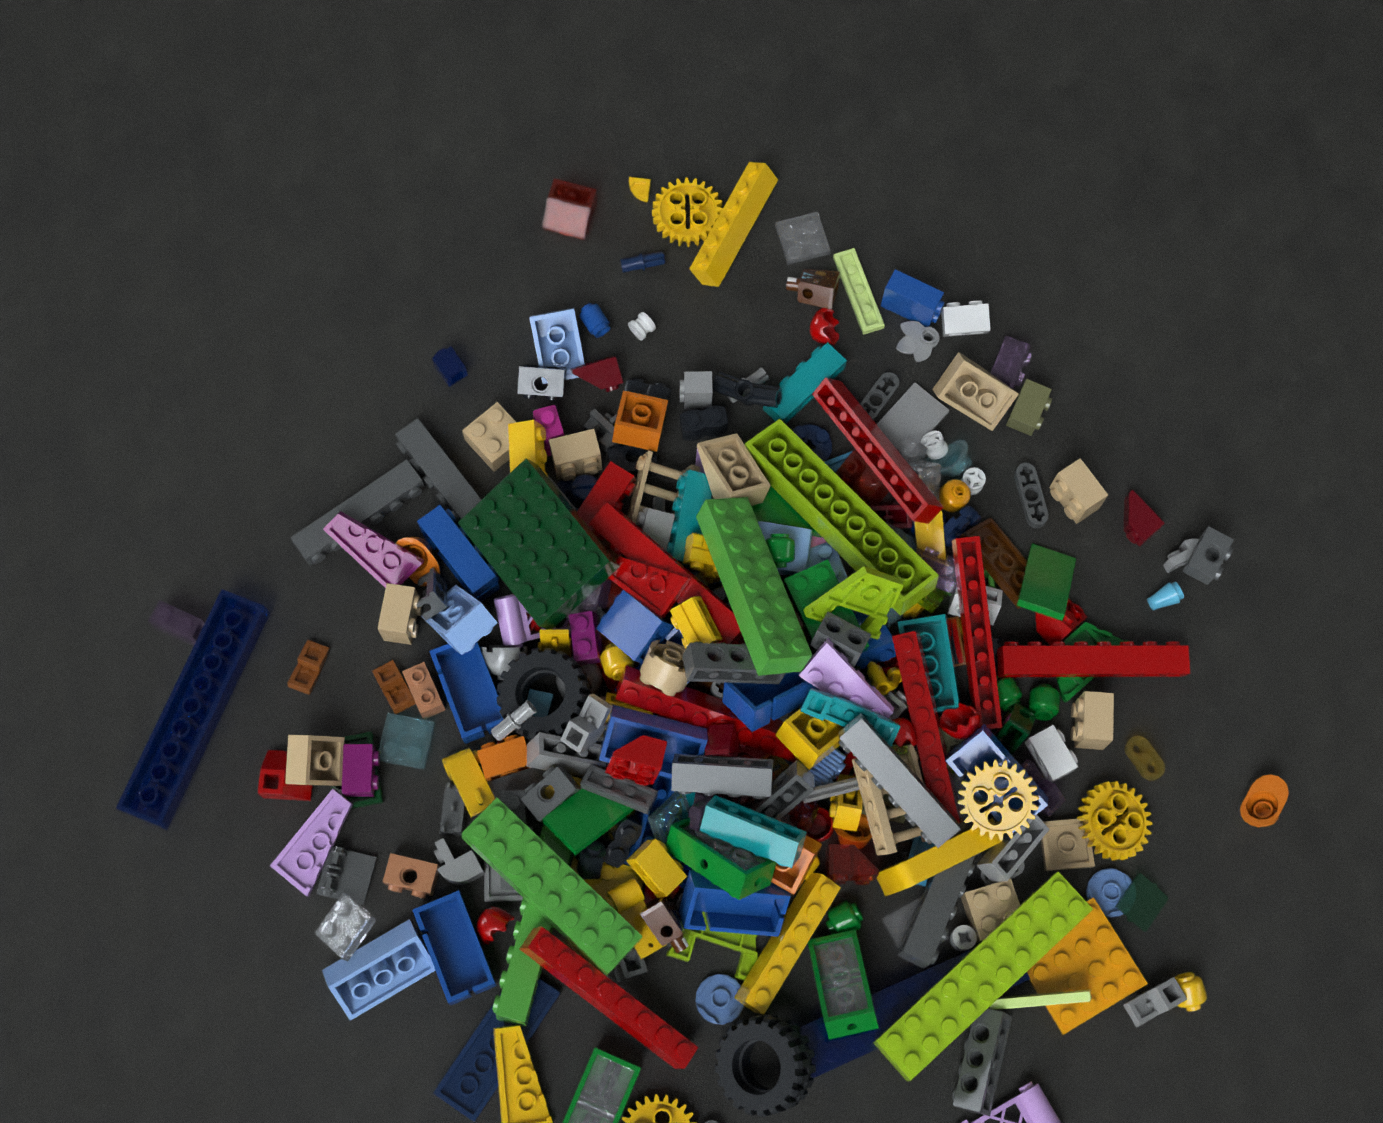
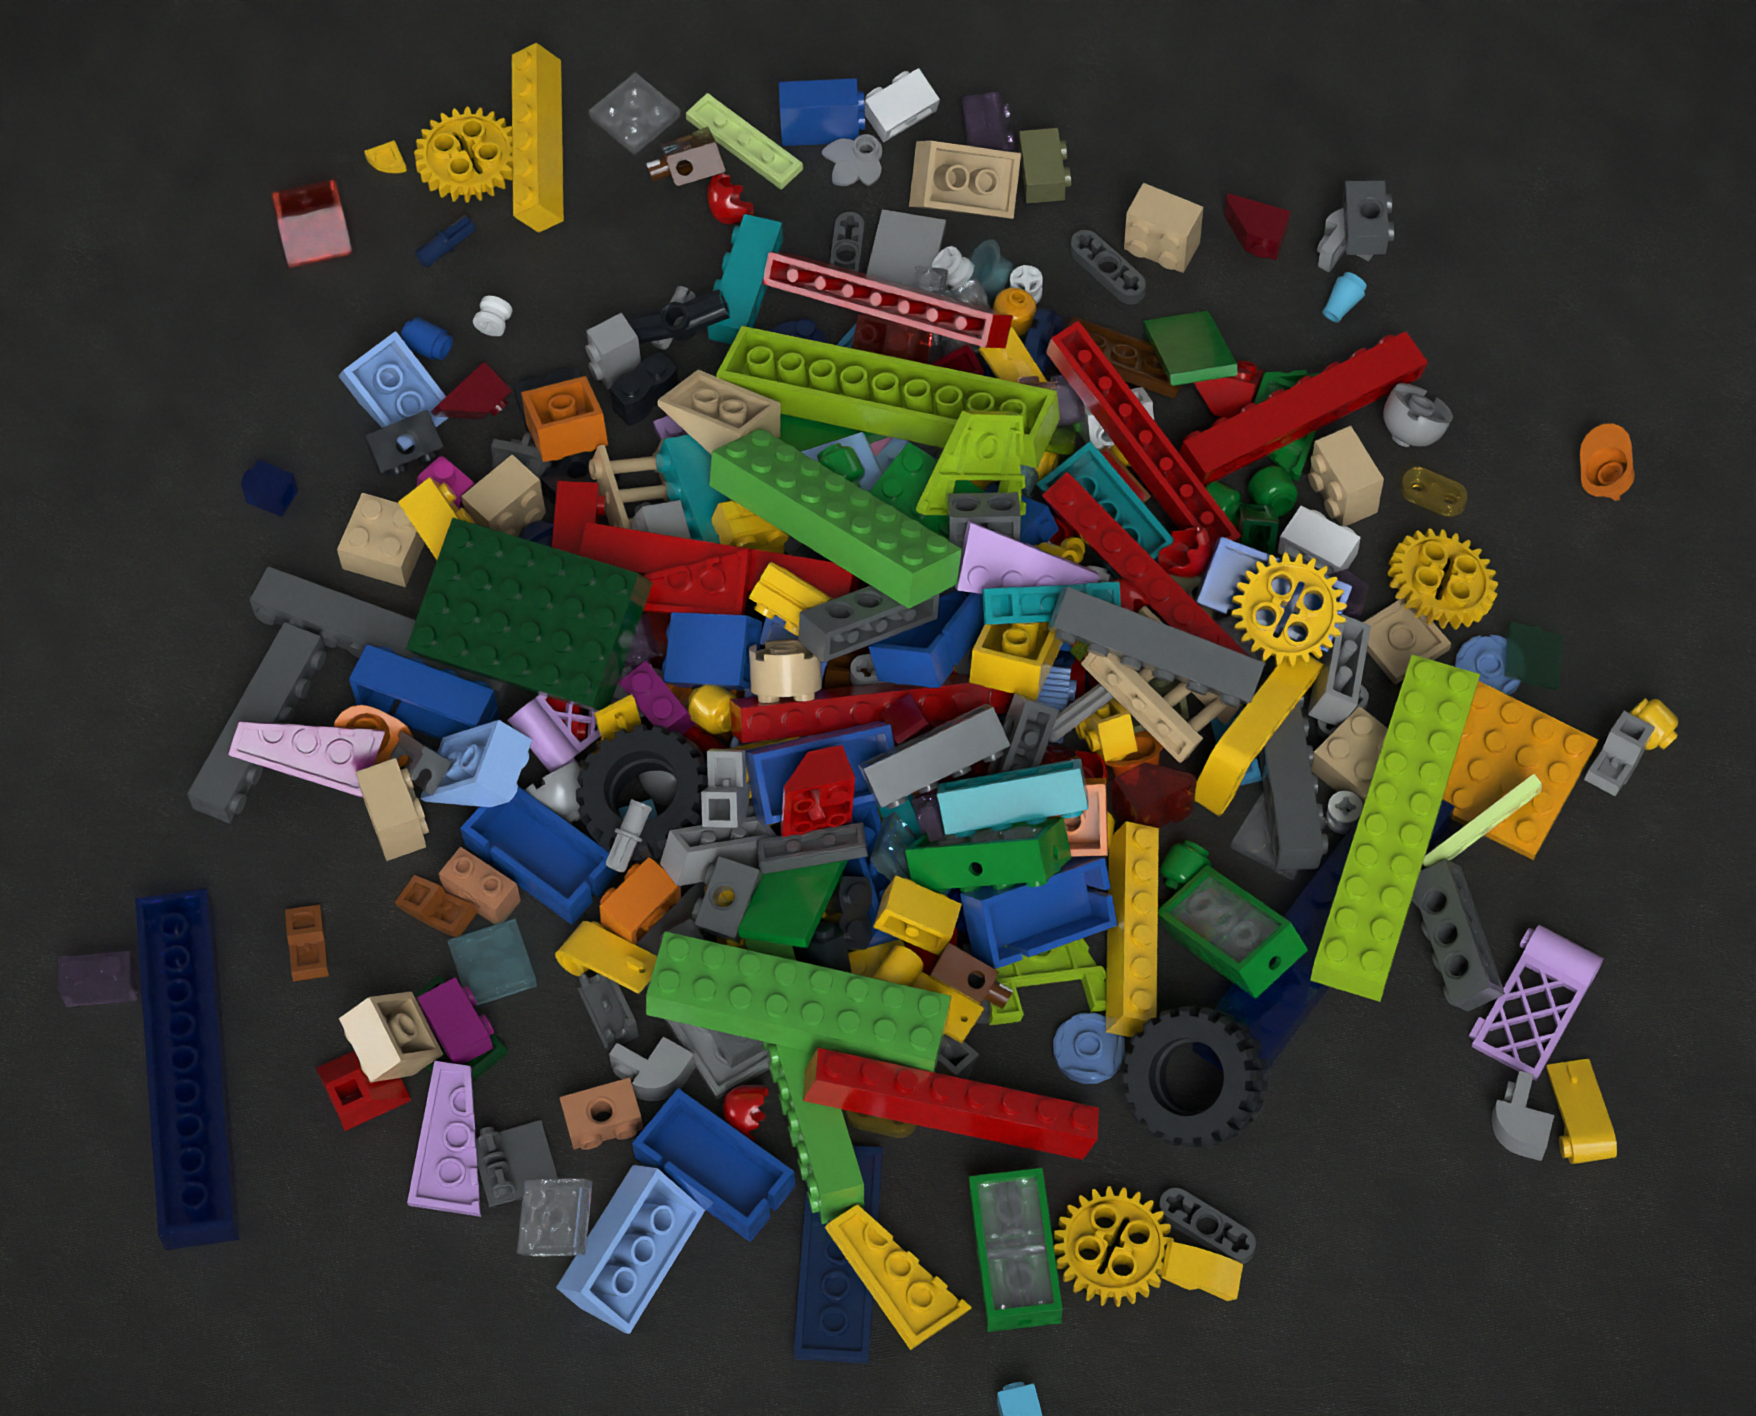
camera: 25 degrees left, 10 degrees down
(1162, 704) = (1415, 418): none -> light grey cylinder

